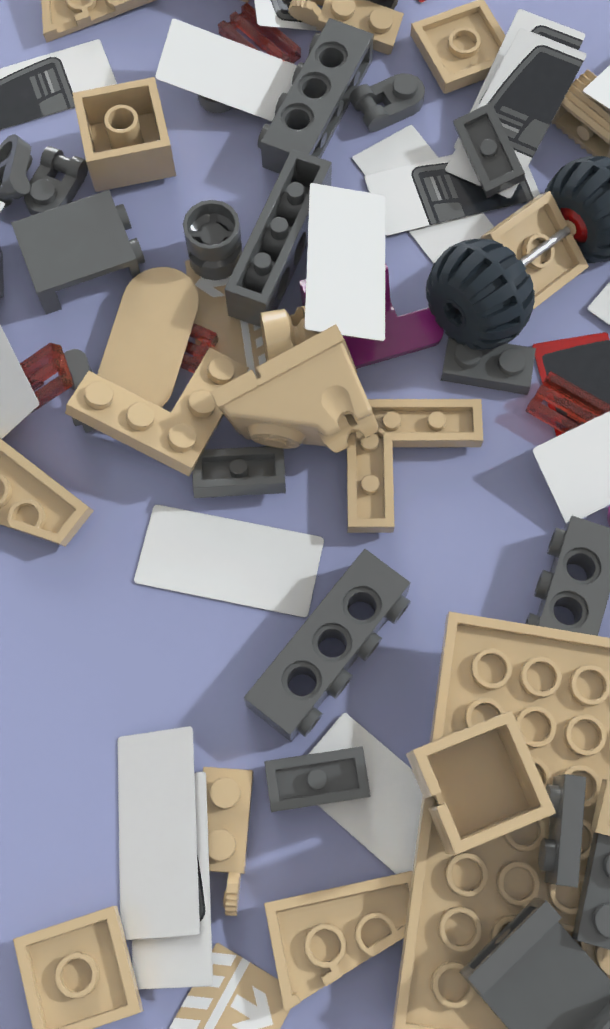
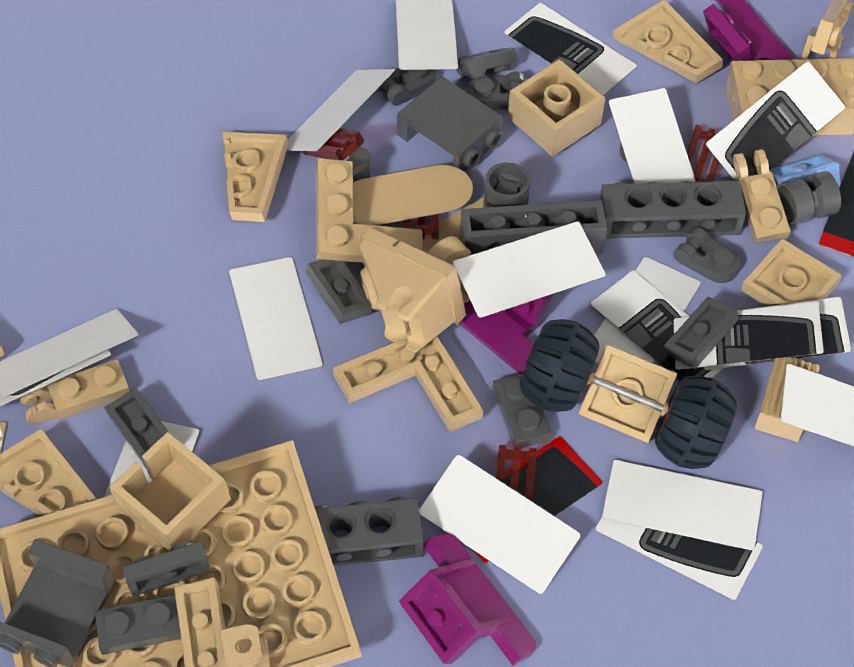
camera: 60 degrees right, 15 degrees down
(364, 581) = (227, 379): dark grey brick -> none

